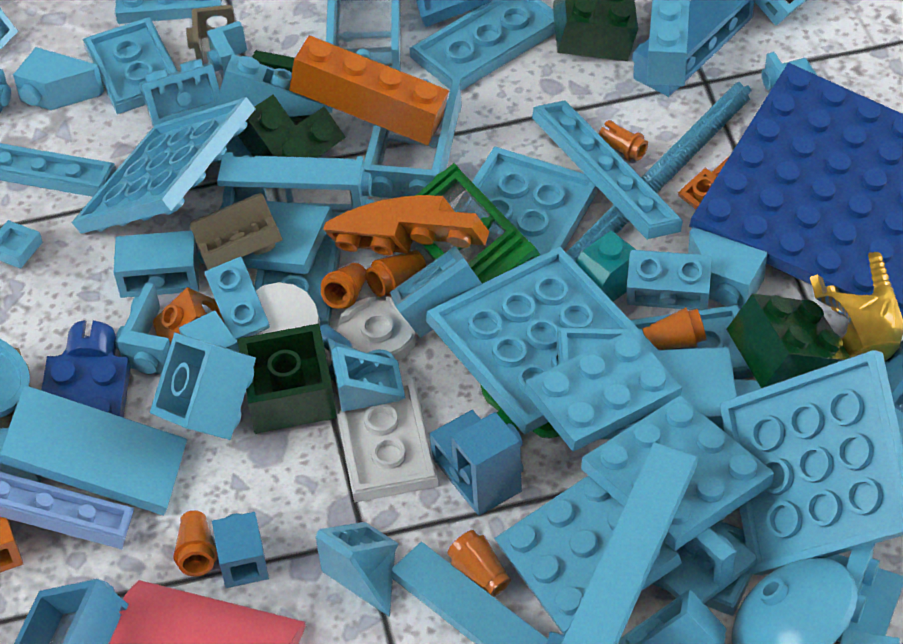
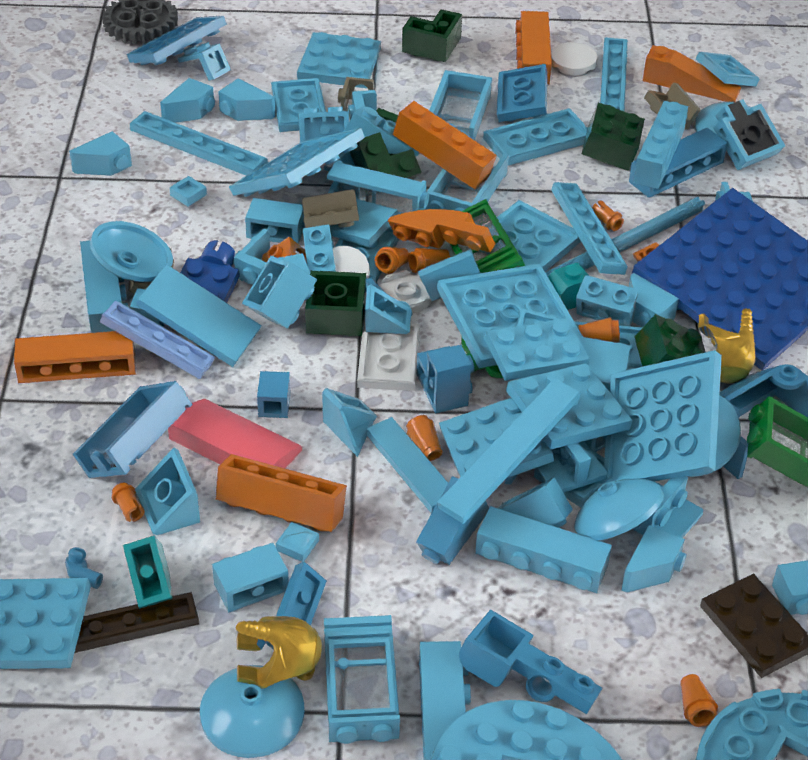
camera: 10 degrees right, 5 degrees down
(194, 546) = (245, 386): orange cone -> none

